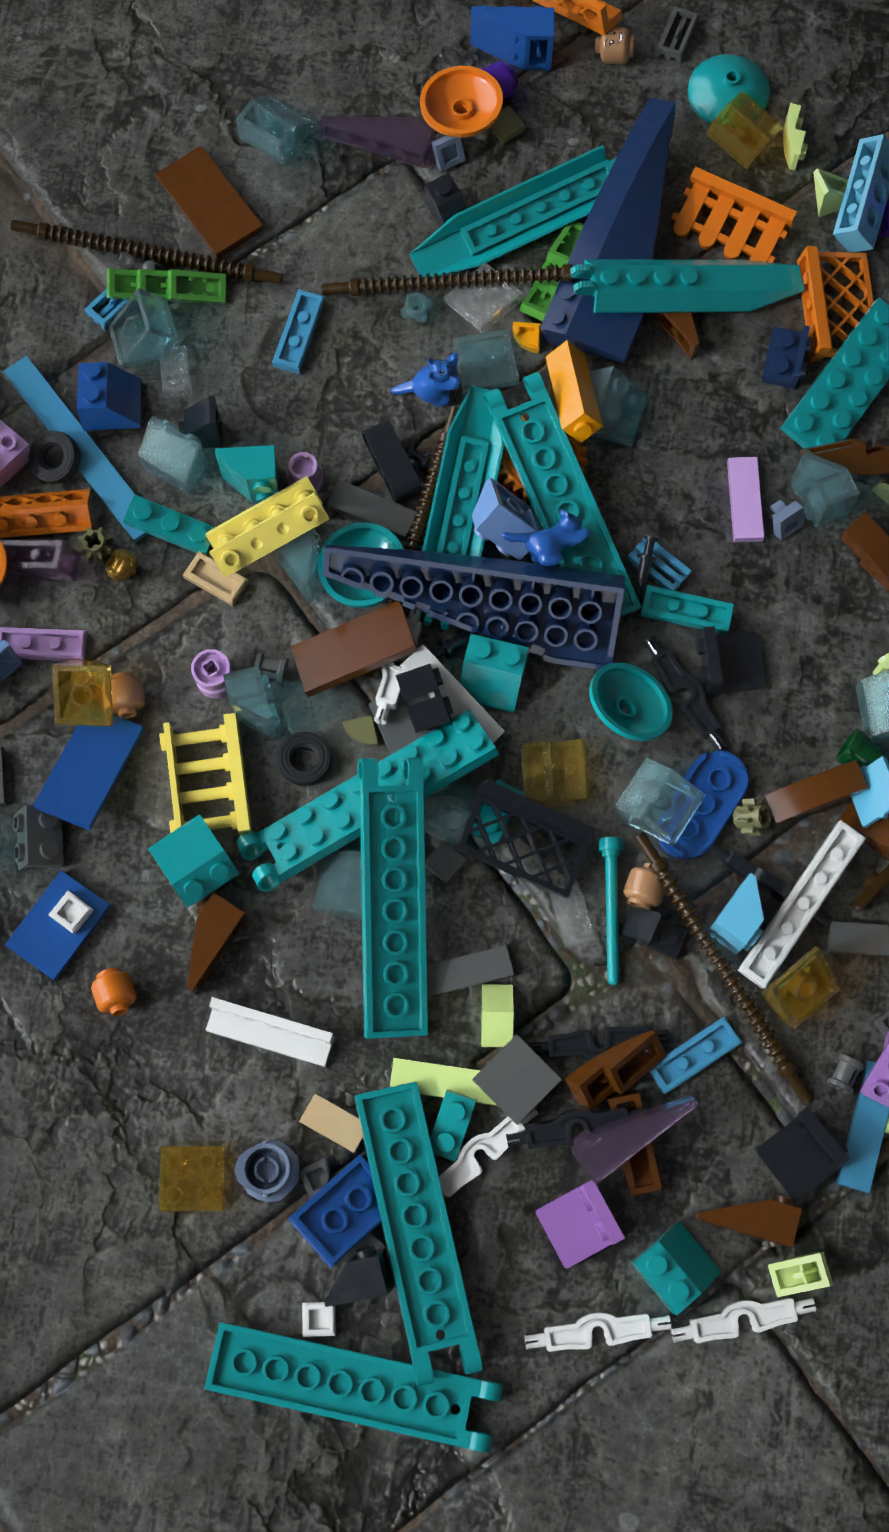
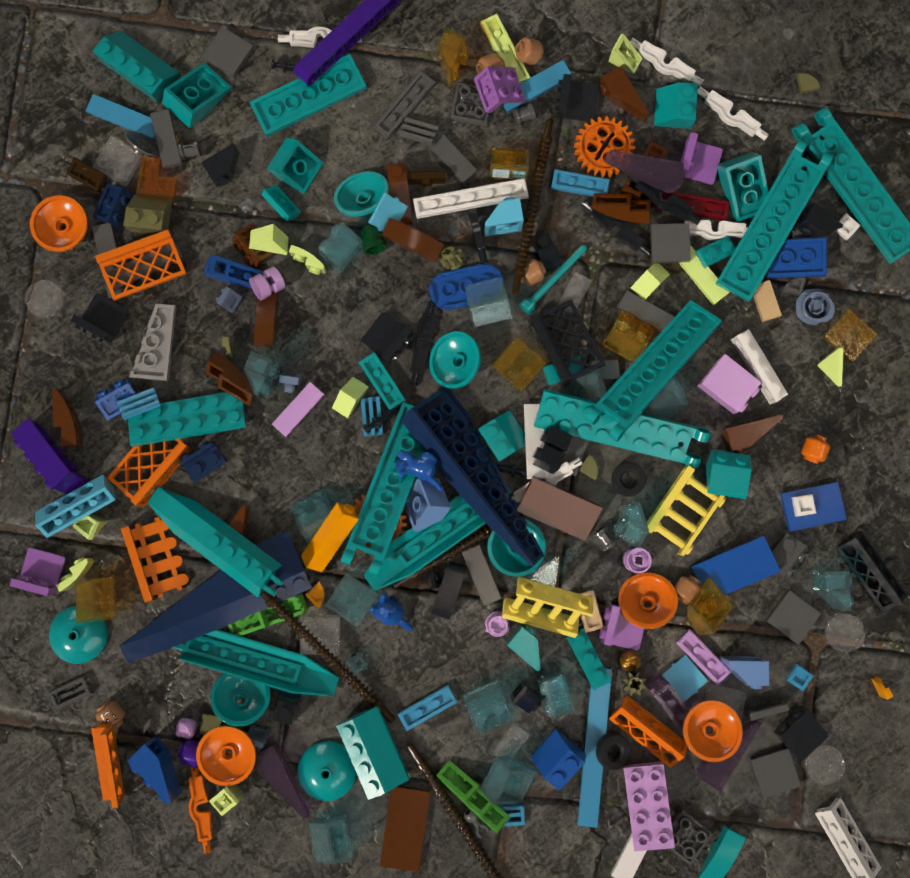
camera: 135 degrees left, 10 degrees up
(42, 604) = (684, 677): none -> medium azure piece
(163, 592) = (619, 631): none -> medium lavender bracket
(178, 635) = (649, 589): none -> orange dish
(179, 1115) = (833, 365): none -> yellowish green slope
(235, 381) = (488, 707): none -> clear light blue slope
(286, 975) = (730, 384): none -> lavender brick
(314, 234) = (373, 752): none -> teal slope
(348, 197) = (328, 757): none -> teal dish
(417, 73) = (227, 798): none -> yellowish green slope
(426, 38) = (201, 818): none -> orange piece
(460, 920) = (628, 336): none -> clear yellow slope
(497, 1244) = (744, 184): none -> teal slope
(502, 146) = (229, 690): none -> teal dish
(524, 1169) = (702, 206): none -> dark red tile
(527, 99) = (186, 728): none -> lavender piece
(541, 1470) = (807, 83): none -> olive tile
(706, 563) = (349, 397): none -> yellowish green slope
(739, 1122) = (590, 138): none -> orange gear
(828, 106) = (40, 572): none -> medium lavender bracket

